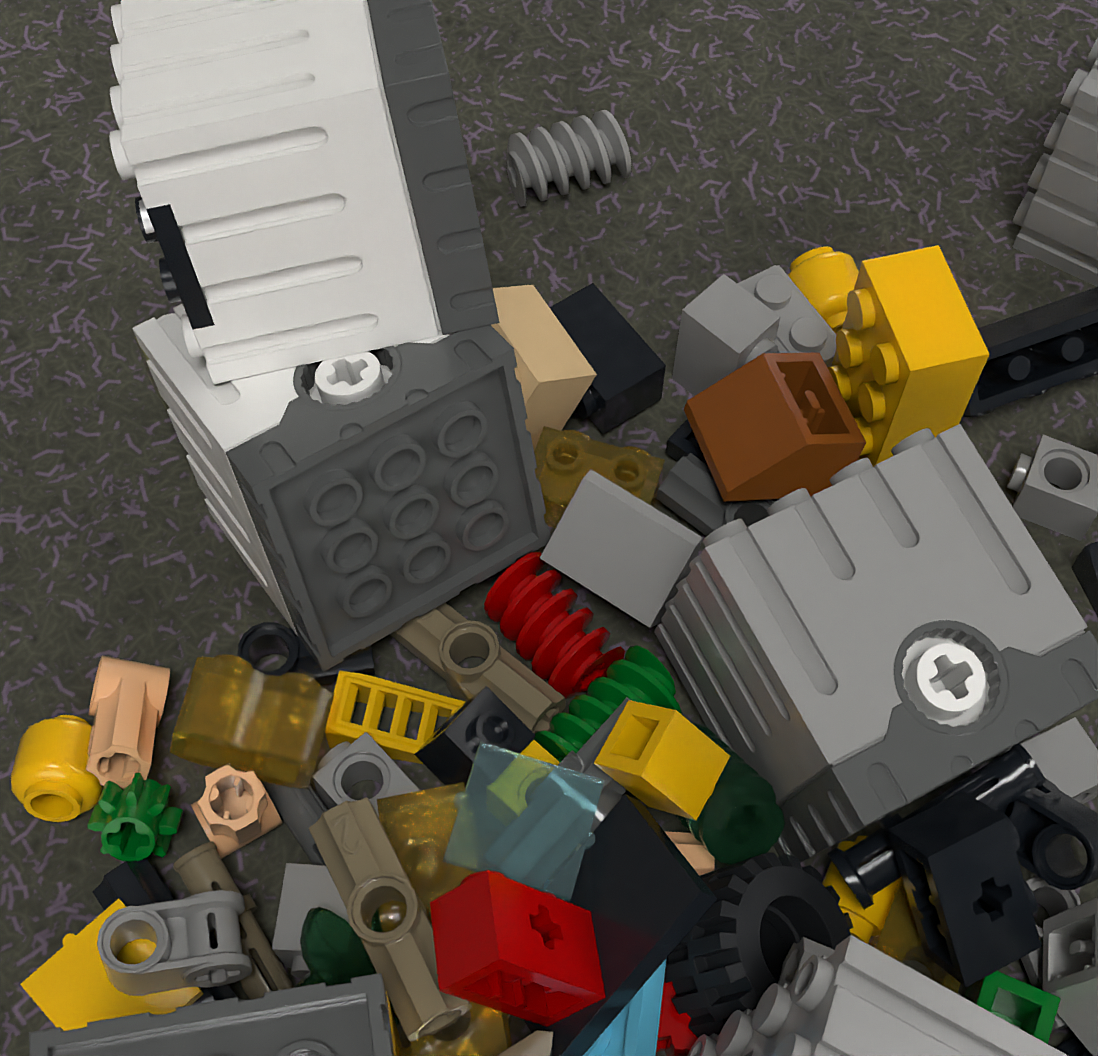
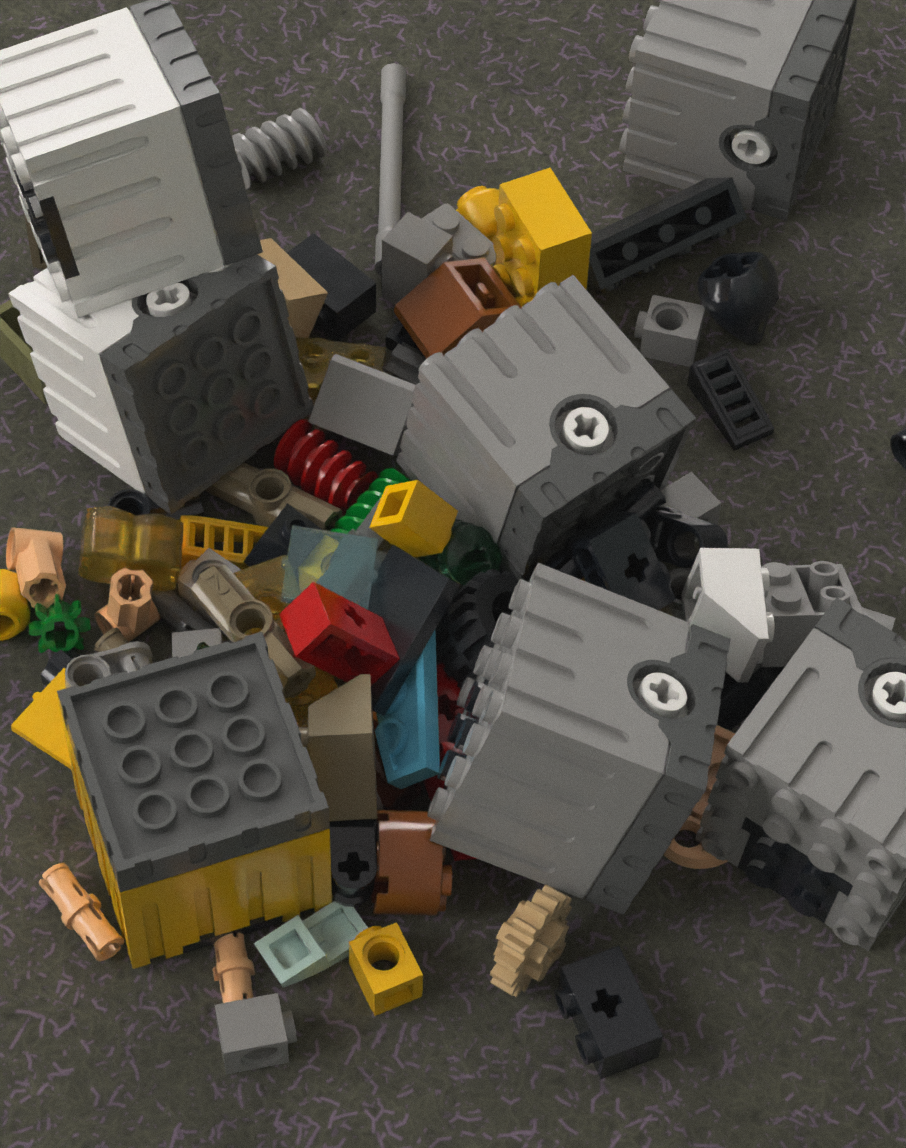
camera: 10 degrees left, 5 degrees down
(726, 114) = (392, 99): none -> light grey piece

